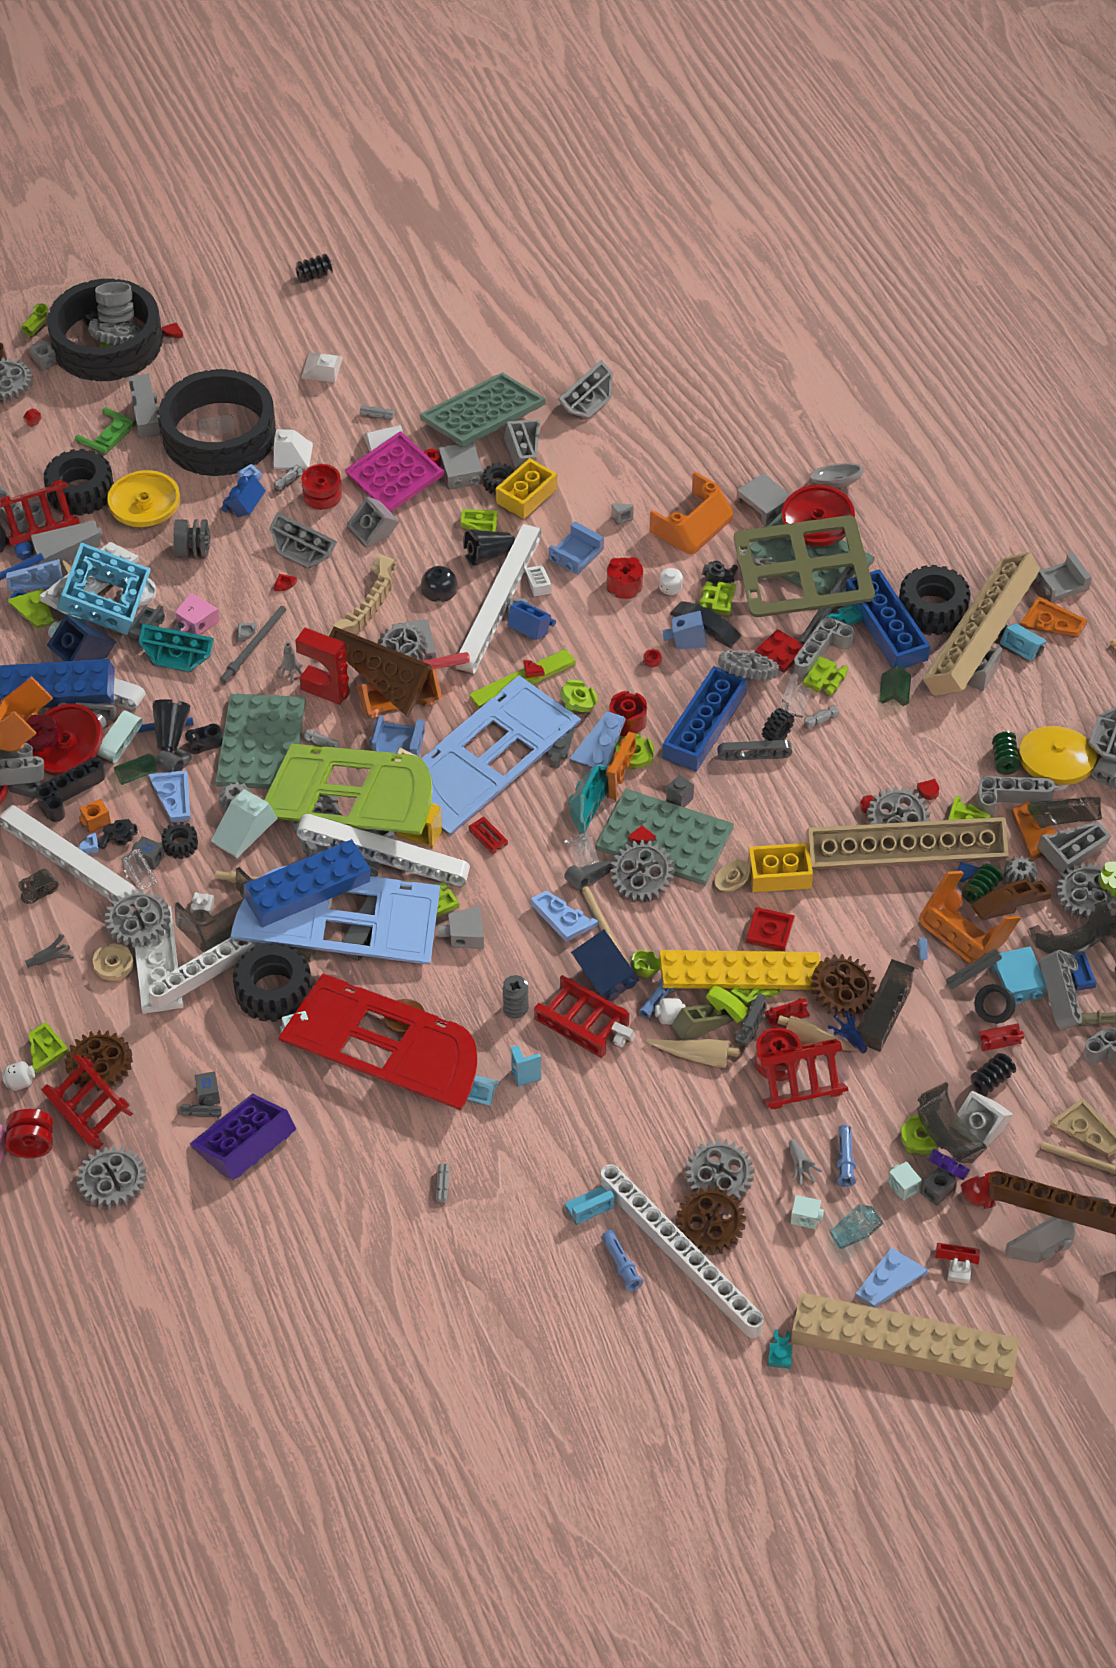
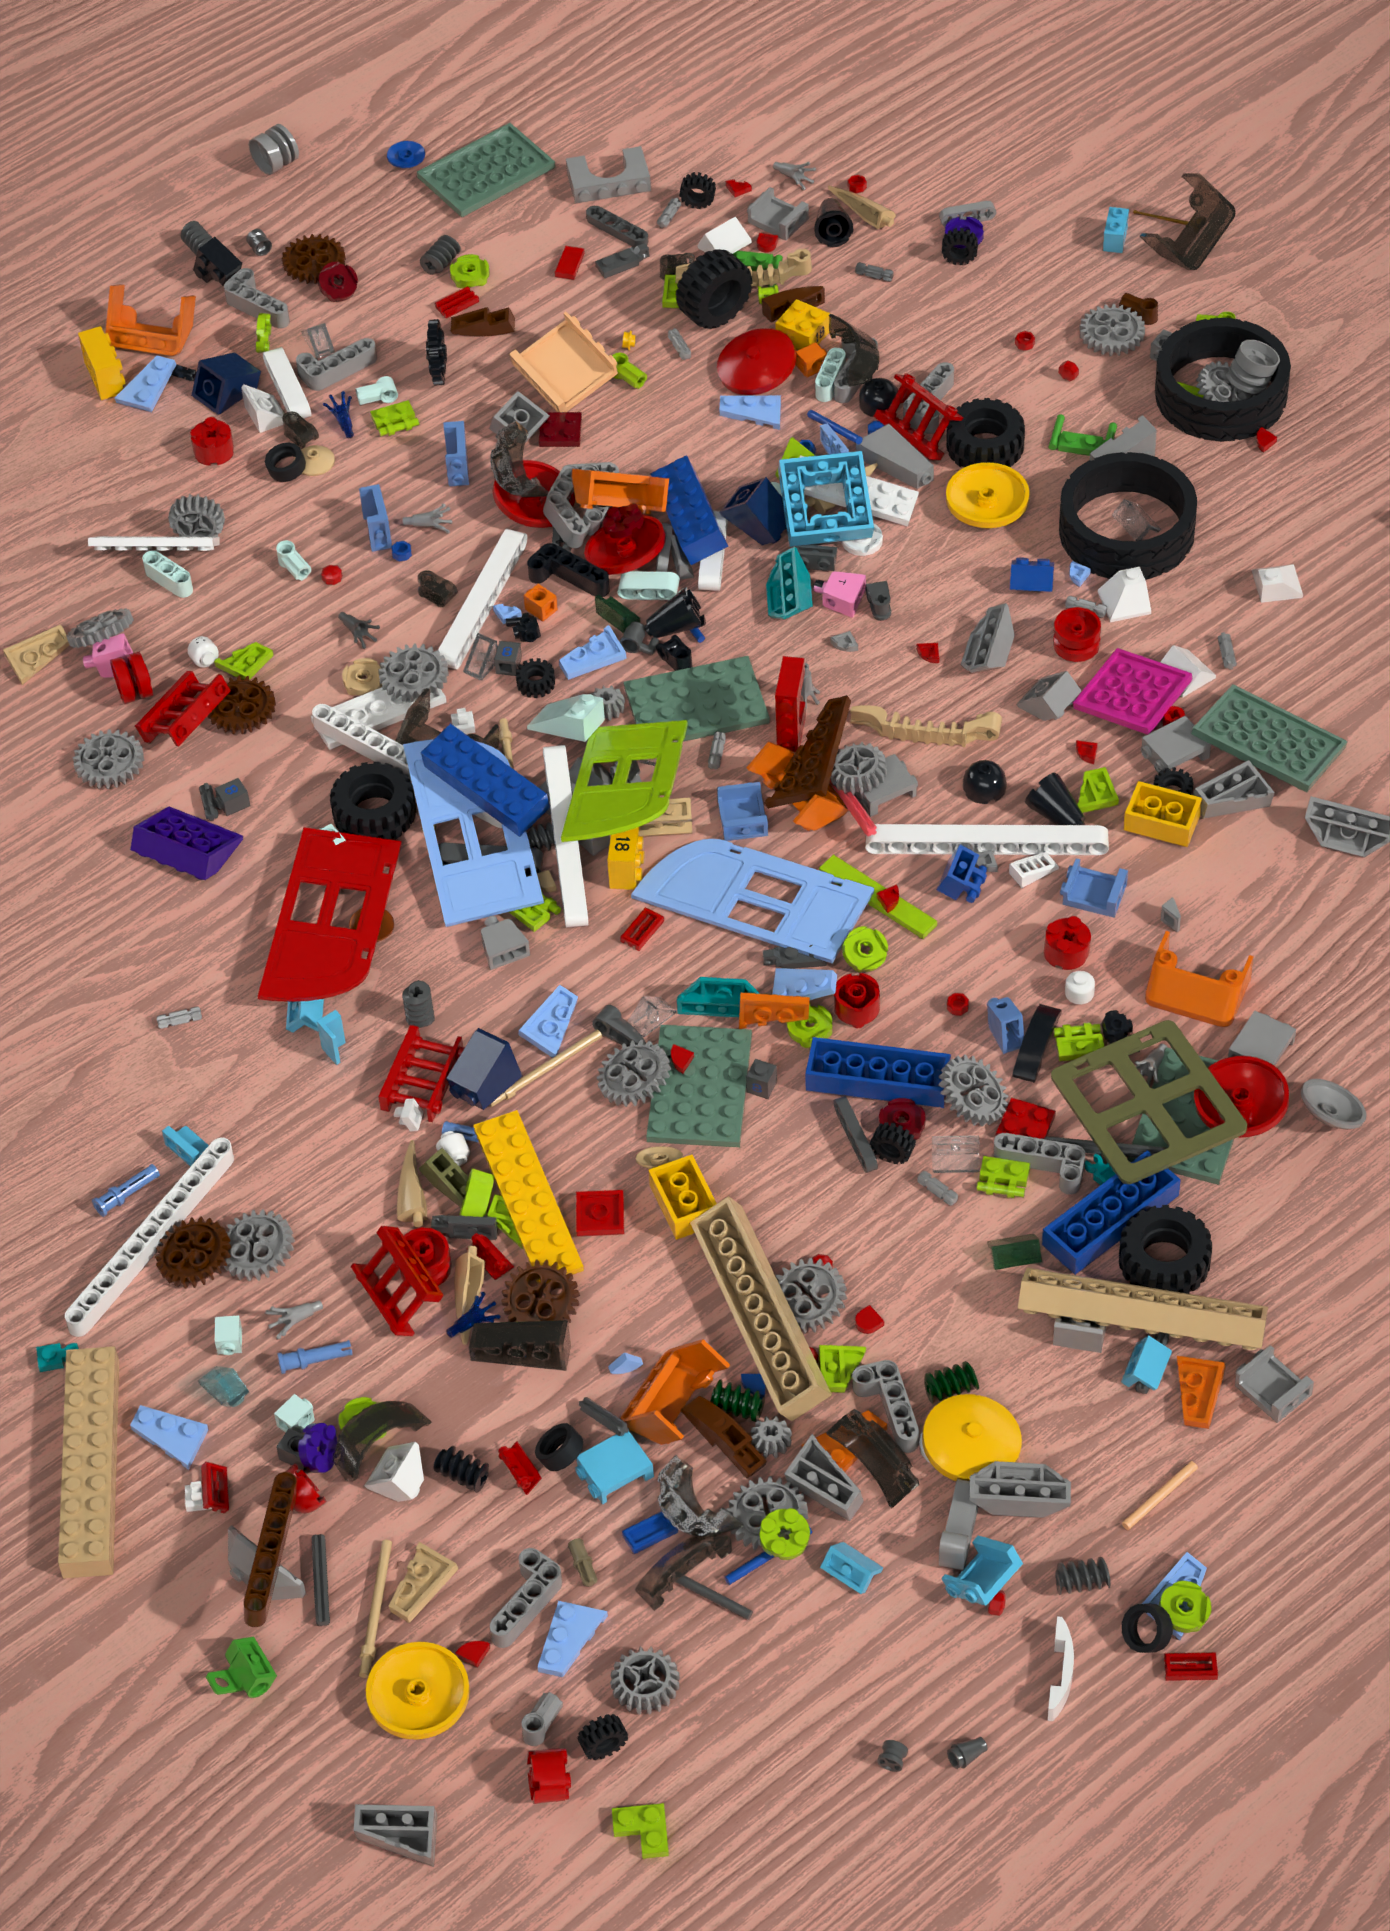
camera: 75 degrees right, 0 degrees up
(191, 538) = (943, 550): dark grey wheel -> none
(215, 594) = (879, 599): none -> dark grey piece
(234, 666) = (787, 647): dark grey bar -> none
(435, 518) = (1086, 751): none -> red tile
(645, 963) = (507, 1103): lime hair -> none
(749, 728) = (904, 1108): none -> dark red plate
(1061, 991) = (603, 1512): light grey beam -> none

